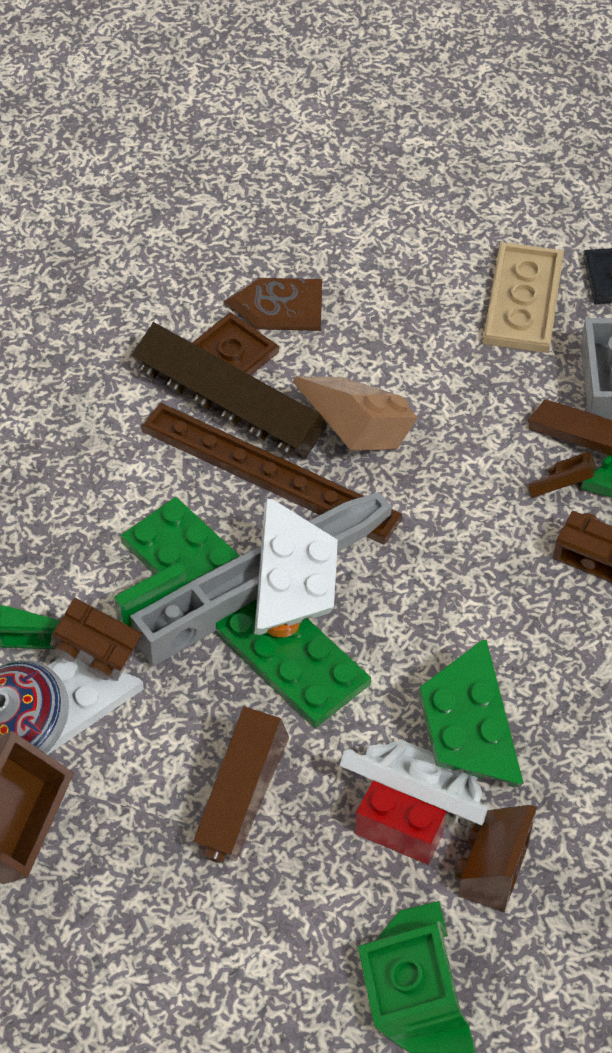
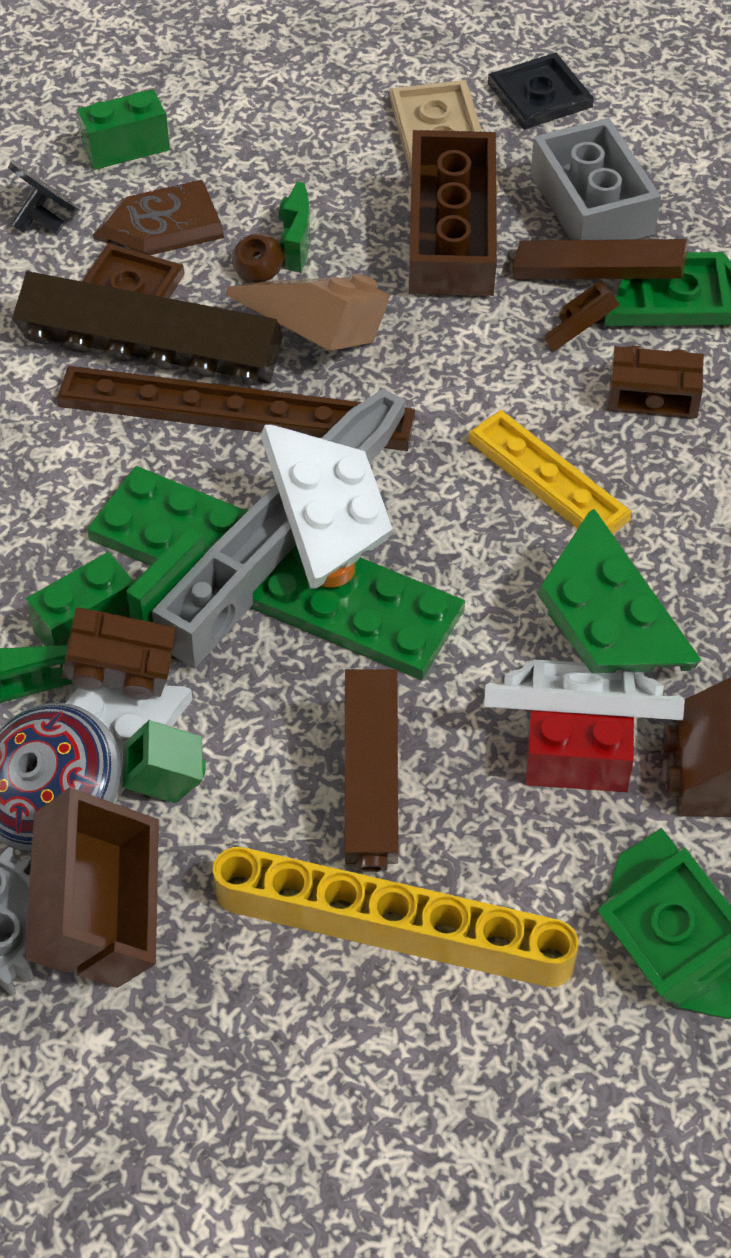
camera: 20 degrees left, 0 degrees up
(91, 585) = (94, 586): none -> green brick
(97, 731) = (162, 762): none -> green brick
(196, 257) = (33, 207): none -> black shield
(219, 916) = (411, 935): none -> yellow beam
(278, 222) = (123, 129): none -> green brick
(342, 362) = (265, 266): none -> reddish brown plate
(378, 336) = (296, 224): none -> green slope
(482, 599) = (546, 472): none -> yellow tile
(496, 363) = (453, 213): none -> reddish brown brick

